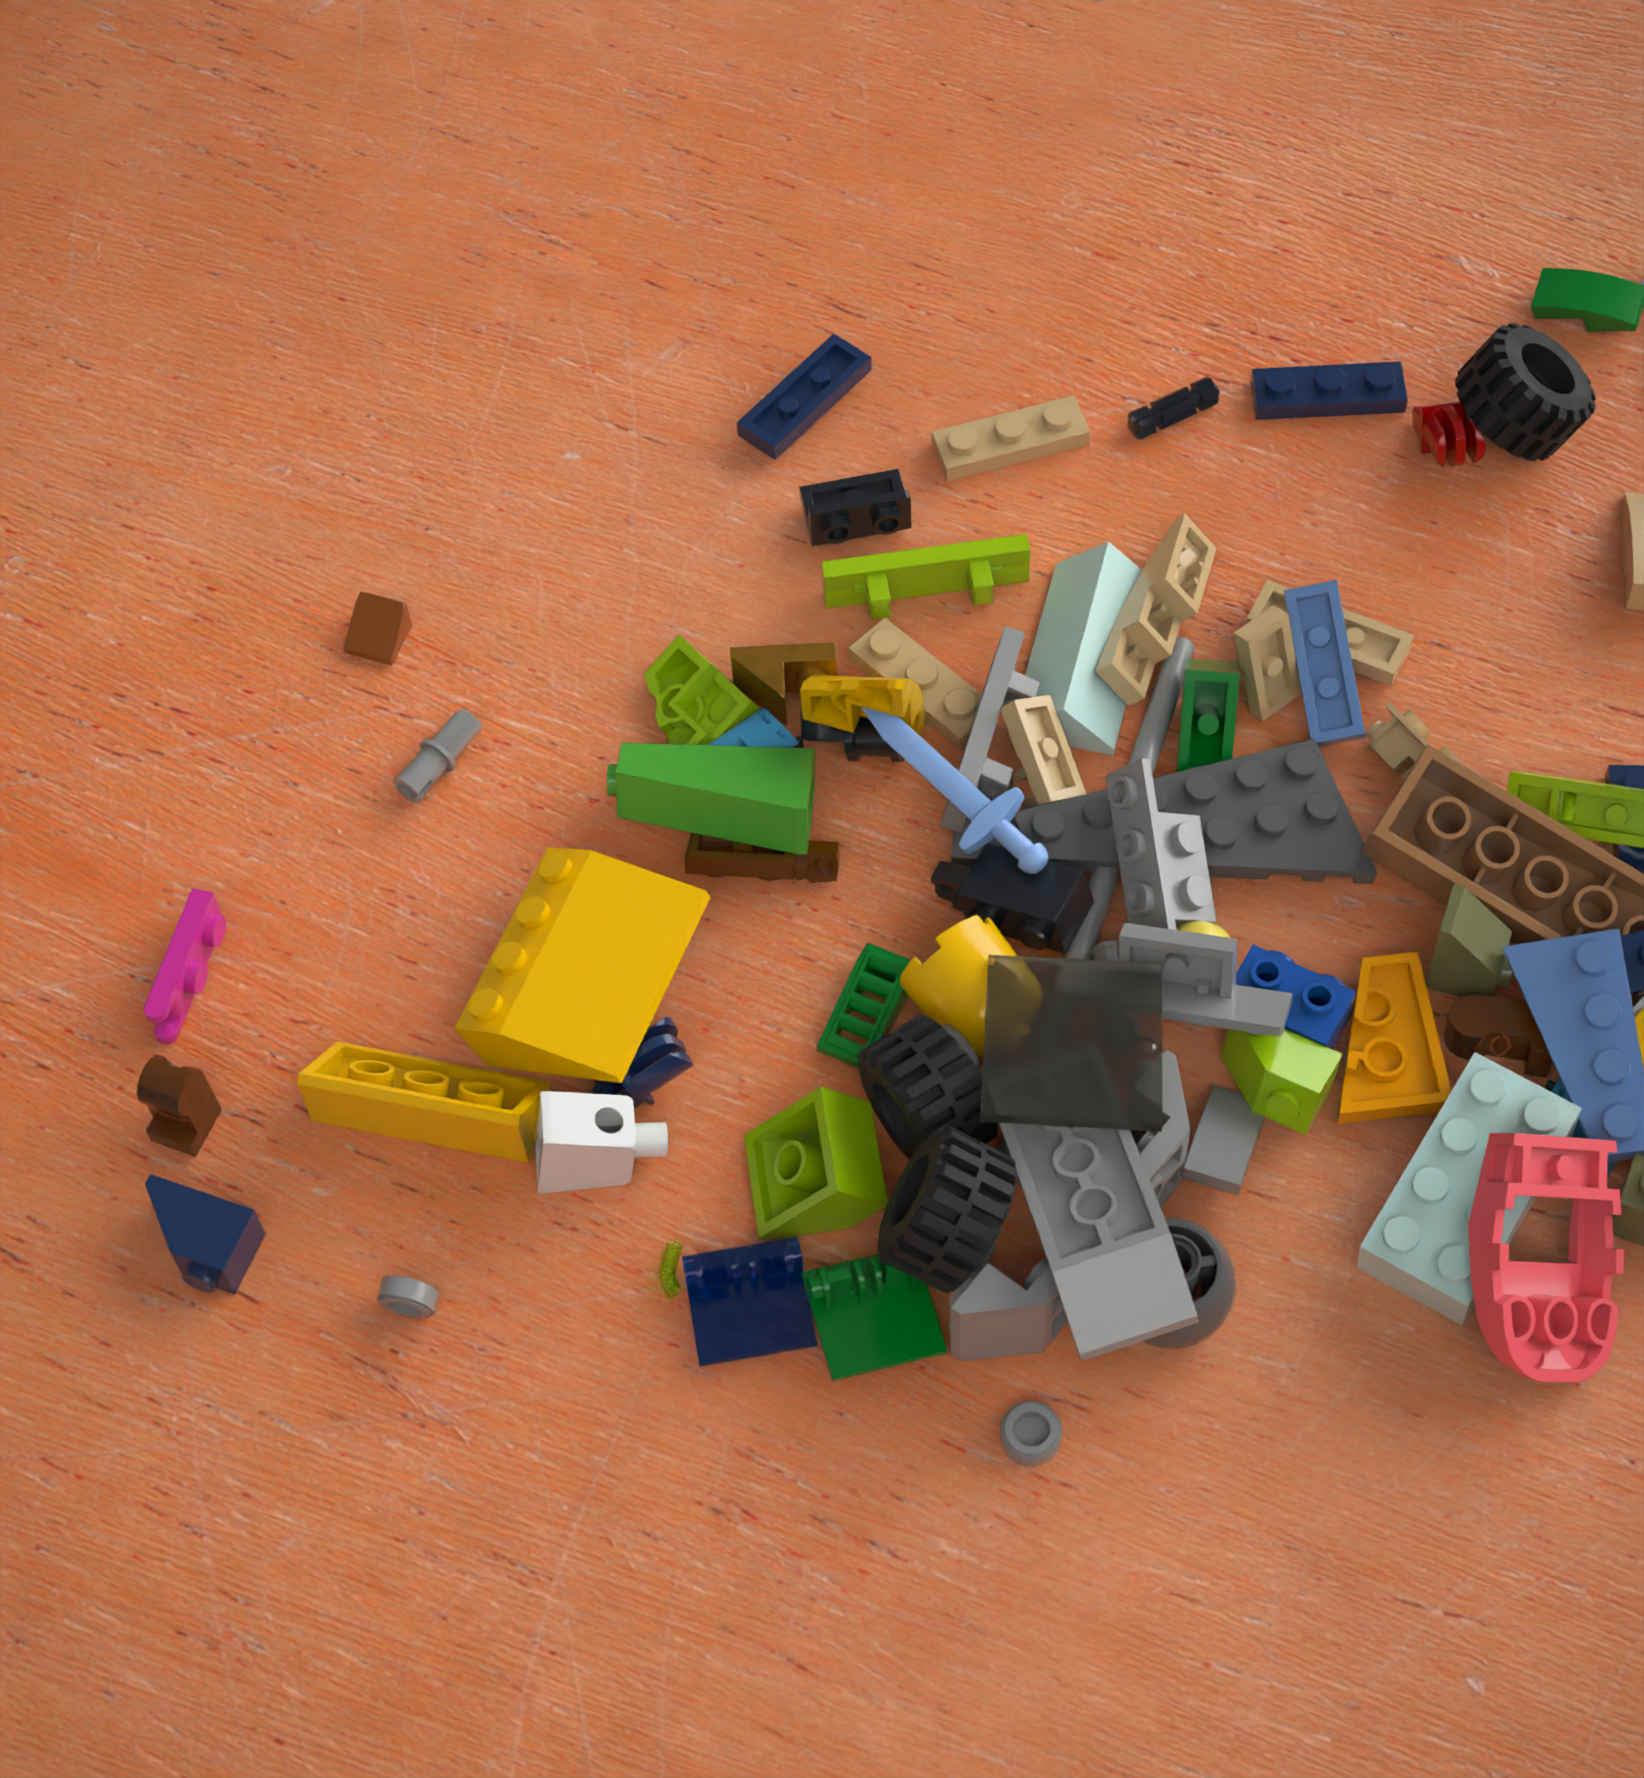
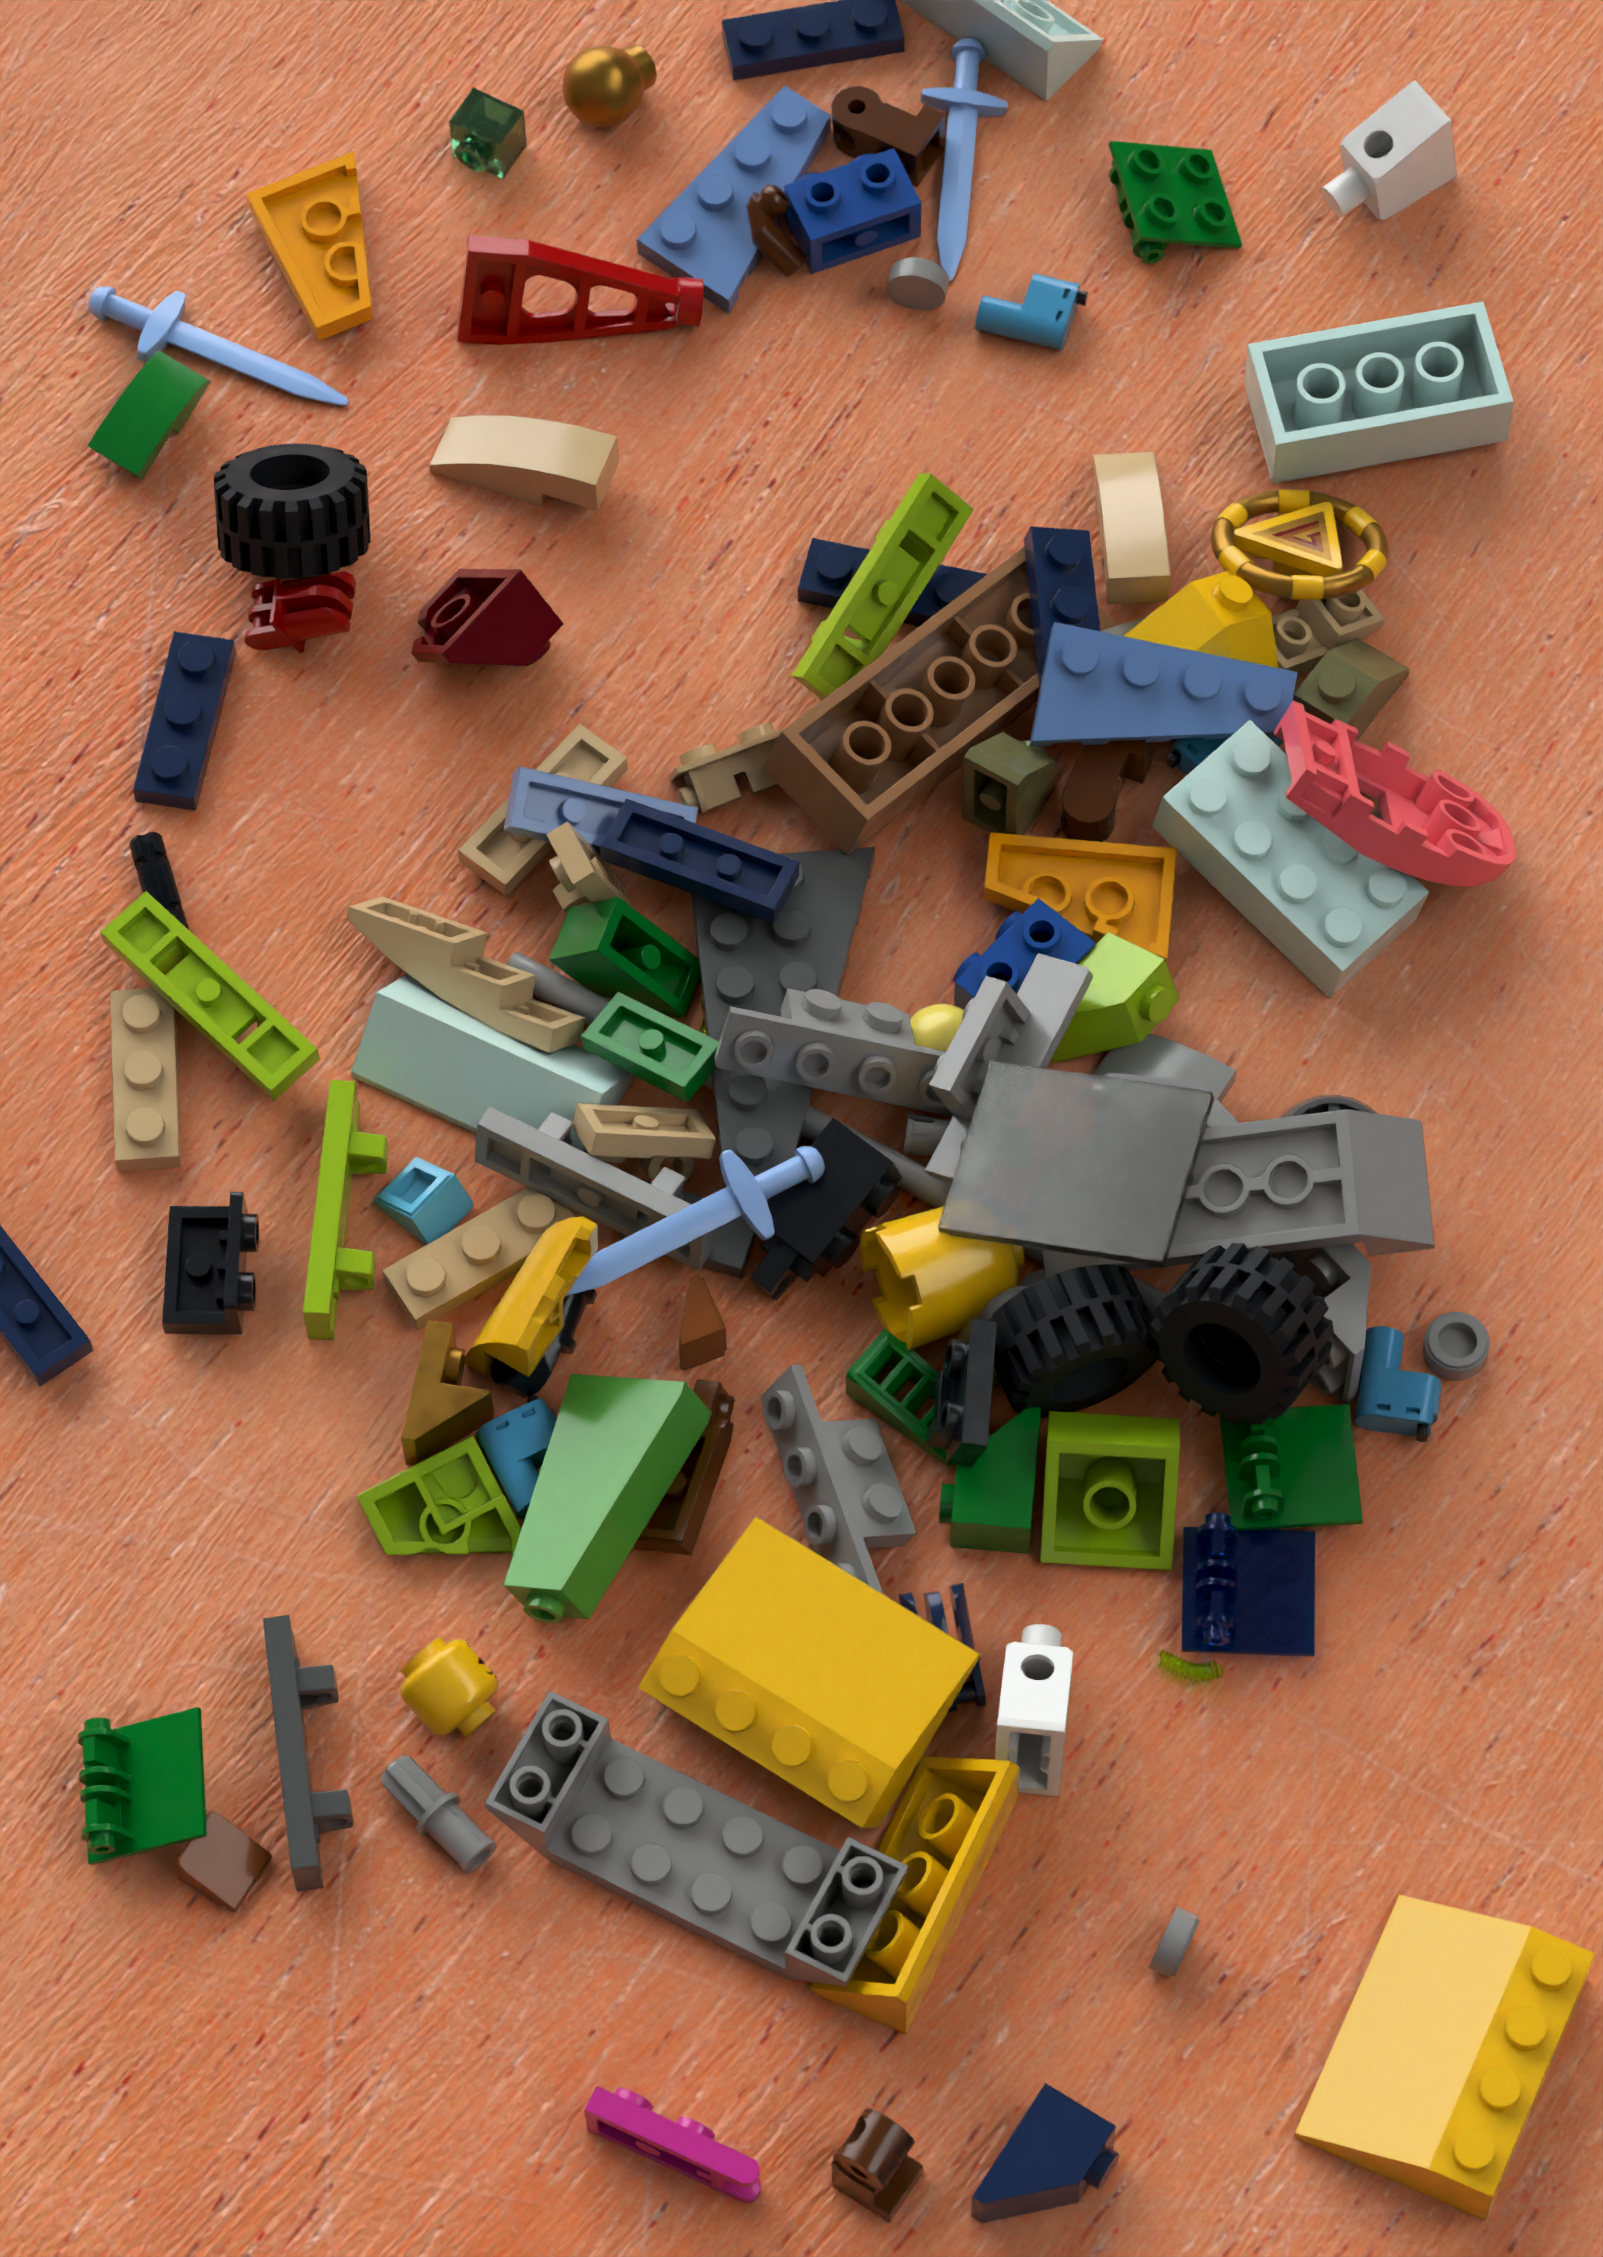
camera: 80 degrees left, 5 degrees up
(340, 1542) = (1446, 2050): none -> yellow slope
(423, 563) = (142, 1784): none -> green hinge
(435, 922) = (691, 1849): none -> light grey slope
(467, 649) = (305, 1811): none -> dark grey hinge
(538, 734) = (449, 1687): none -> yellow head
(773, 975) = (837, 1478): none -> light grey bracket
(789, 1068) = (995, 1496): none -> green slope
(848, 1023) = (964, 1394): none -> black plate
(890, 835) = (702, 1327): none -> dark orange slope
(957, 636) = (425, 1200): none -> medium azure slope
(962, 1381) = (1391, 1397): none -> dark azure piece
(1080, 449) = (209, 995): none -> lime hinge
(1120, 734) = (652, 1046): none -> green plate
(1302, 733) = (700, 860): none -> dark blue plate
(1477, 552) = (486, 620): none -> dark red slope

